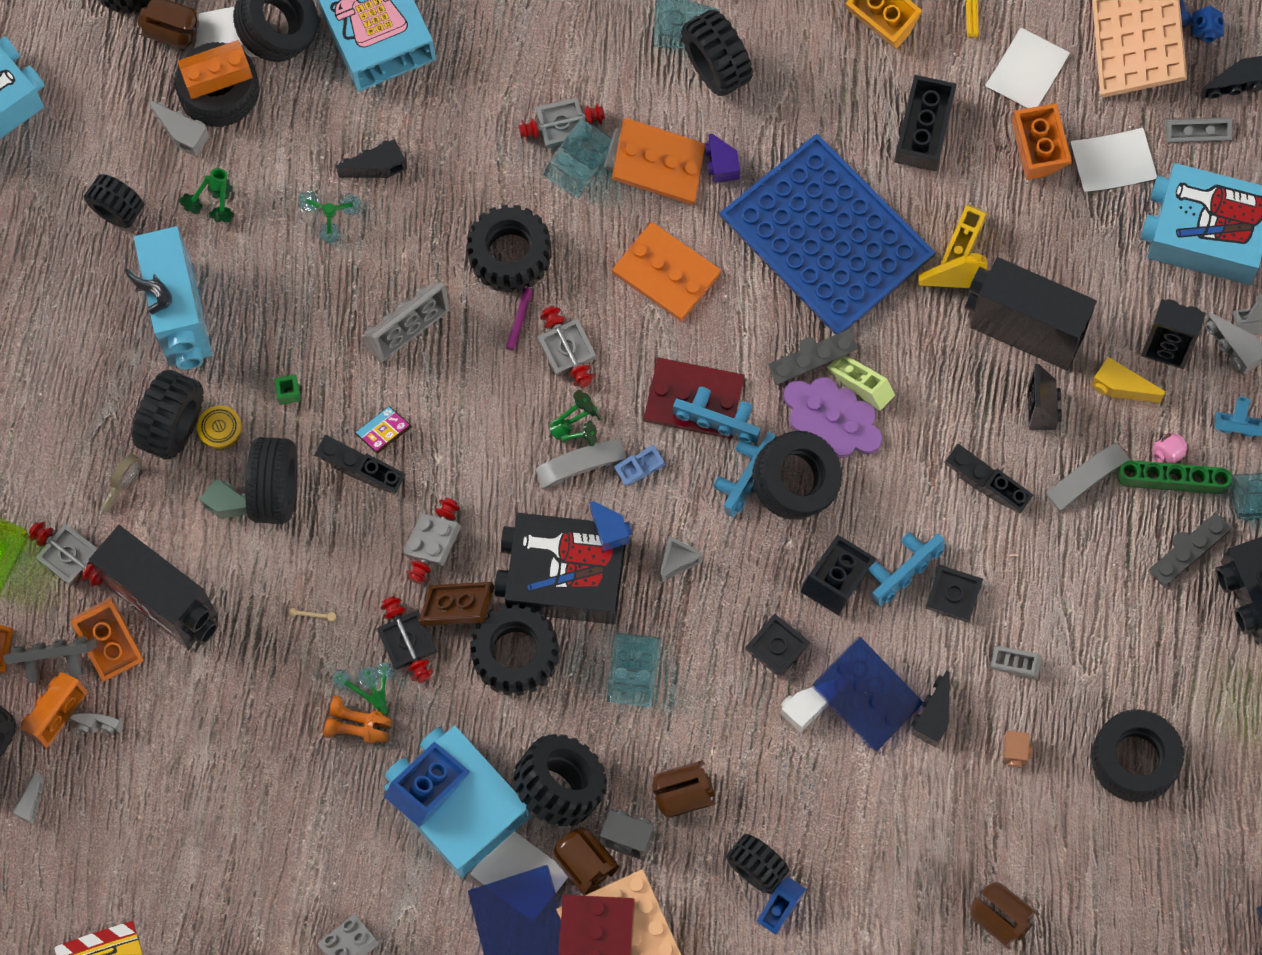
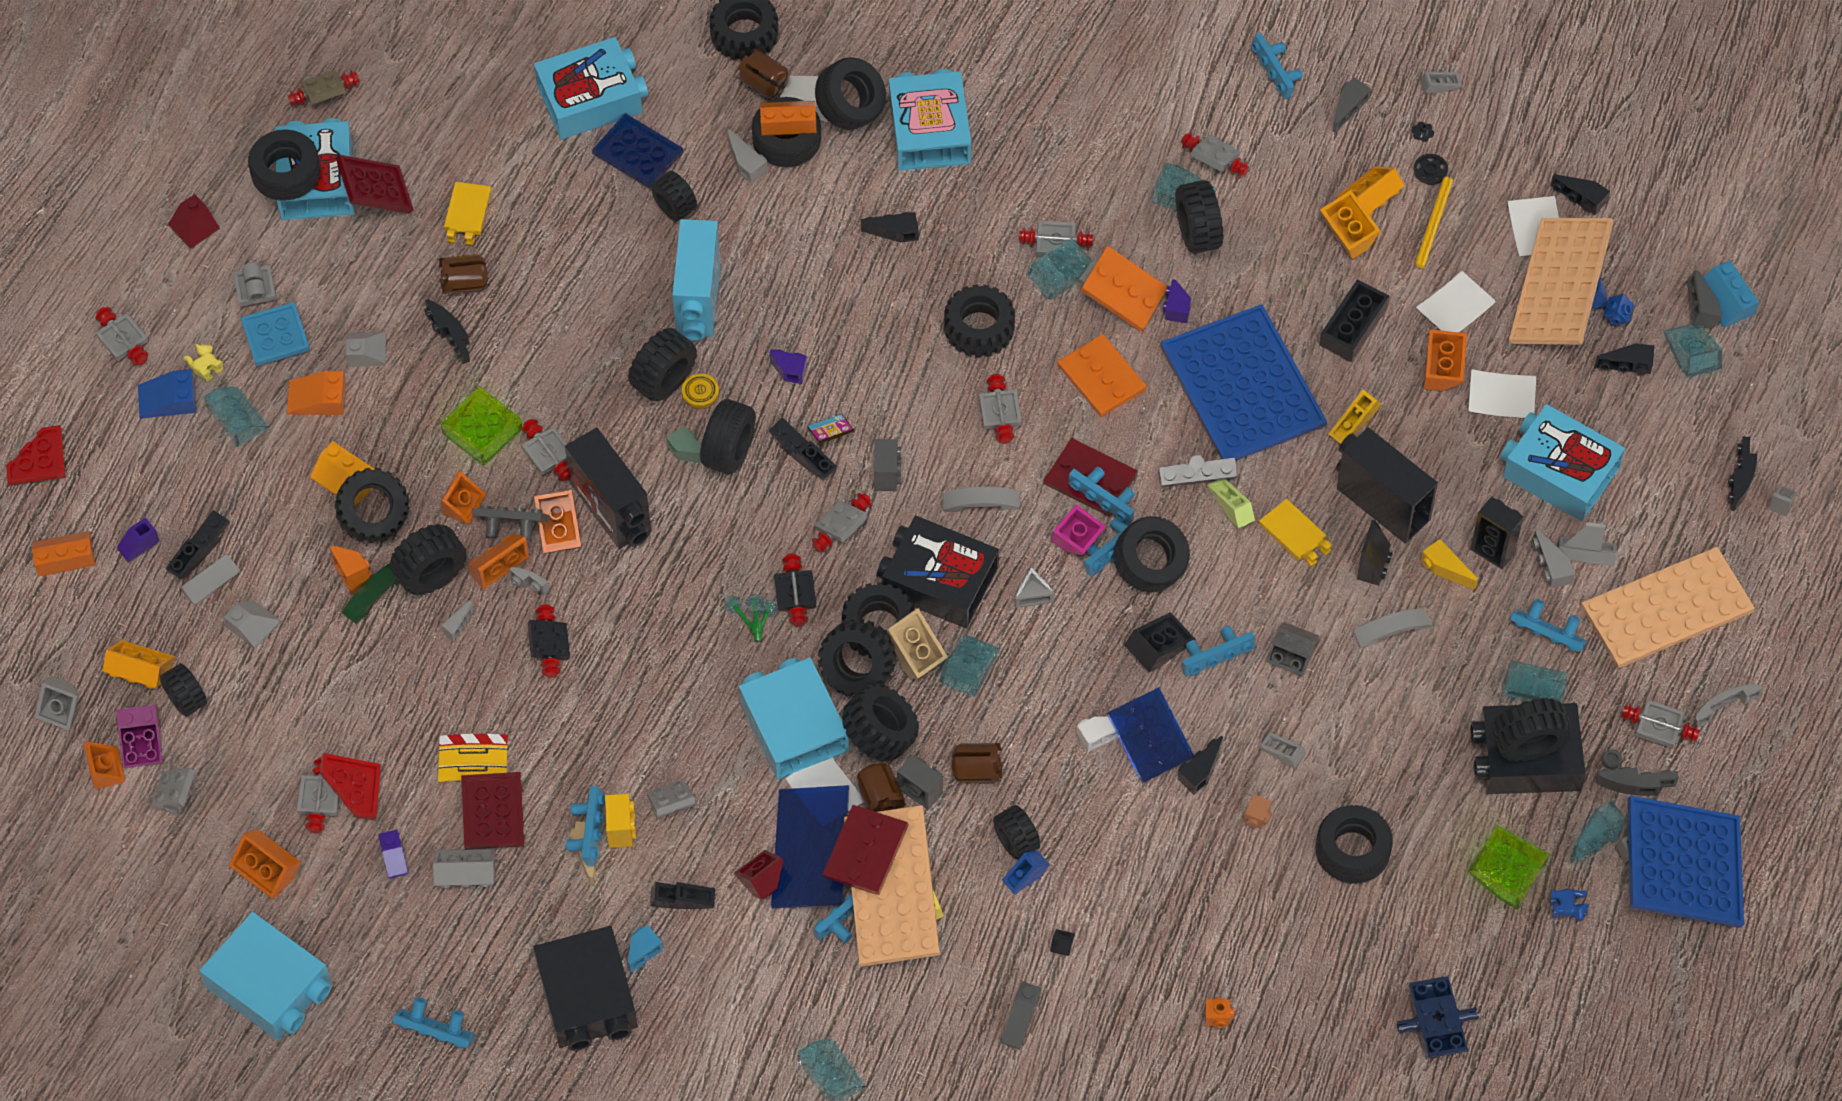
camera: 15 degrees right, 10 degrees down
(54, 156) = (637, 150): none -> clear blue plate
(122, 479) = (610, 405): dark tan piece -> none
(143, 790) = (548, 640): none -> black plate
(154, 286) = (684, 259): black piece -> none
(219, 187) = (761, 210): plant -> none
(284, 384) = (764, 377): green plate -> none
(312, 366) = (789, 365): none -> dark purple slope
(329, 231) = (838, 268): clear light blue plant -> none
(330, 616) = (741, 557): tan hinge -> none
(370, 735) = (747, 646): orange piece -> none
(407, 321) = (878, 352): light grey slope -> none
(426, 784) = (772, 691): blue slope -> none
(456, 603) = (843, 572): reddish brown tile -> none
(462, 456) = (887, 465): none -> dark grey brick
(514, 683) = (872, 639): none -> black tyre
(519, 319) = (970, 376): magenta bar -> none
(562, 427) = (974, 467): plant -> none
(569, 670) = (916, 645): none -> tan slope
(610, 526) = (985, 544): blue slope -> none
(640, 466) = (1027, 516): medium blue slope -> none
(704, 471) = (1077, 531): none -> dark pink slope
(777, 645) = (1091, 680): black plate -> none
(833, 416) = (1200, 522): medium lavender plate -> none
(943, 395) = (1295, 532): none -> yellow tile
(954, 273) = (1330, 441): yellow slope -> none
(954, 593) = (1249, 683): black plate -> none
(987, 480) = (1307, 606): black slope -> none
(988, 537) = (1292, 648): none -> flat silver slope
(995, 923) = (1216, 932): reddish brown cylinder -> none
(1169, 449) = (1466, 624): bright pink head -> none
(1184, 472) = (1472, 645): green beam -> none
(1189, 548) = (1455, 705): dark grey hinge -> none
(1198, 129) = (1582, 390): light grey slope -> none

